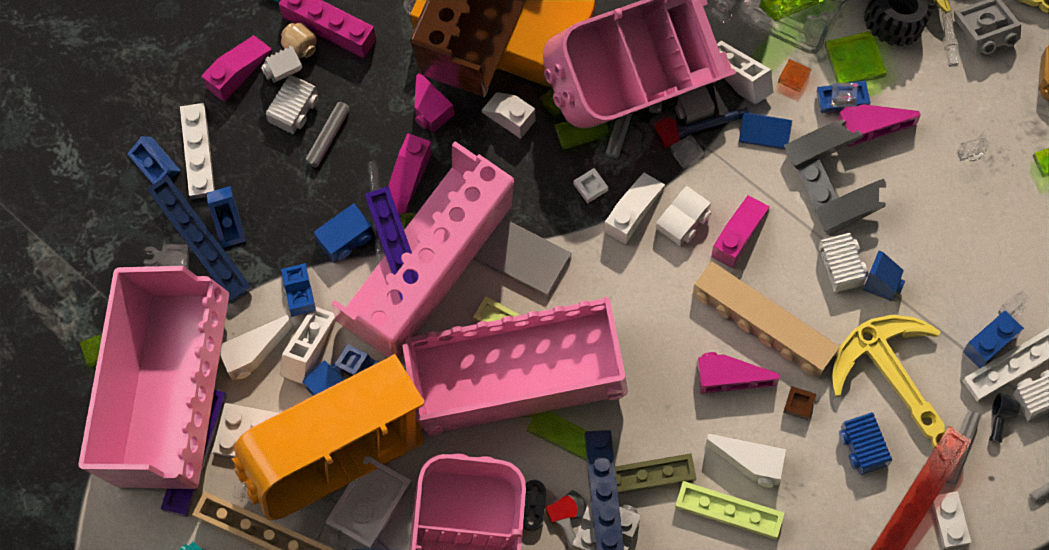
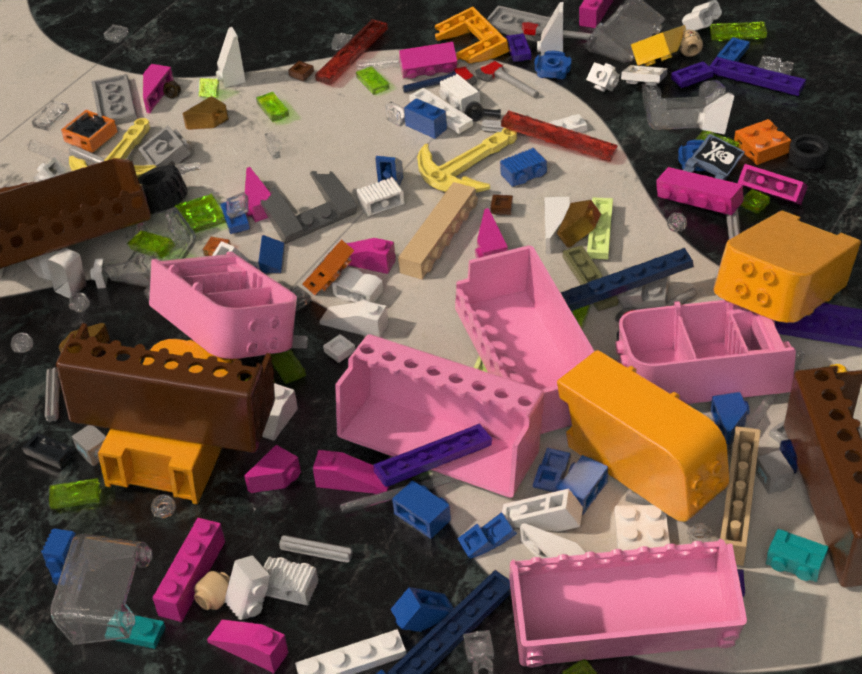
camera: 100 degrees left, 25 degrees down
(709, 183) = (329, 268): none -> orange piece
(733, 480) = (578, 222): none -> pearl gold slope

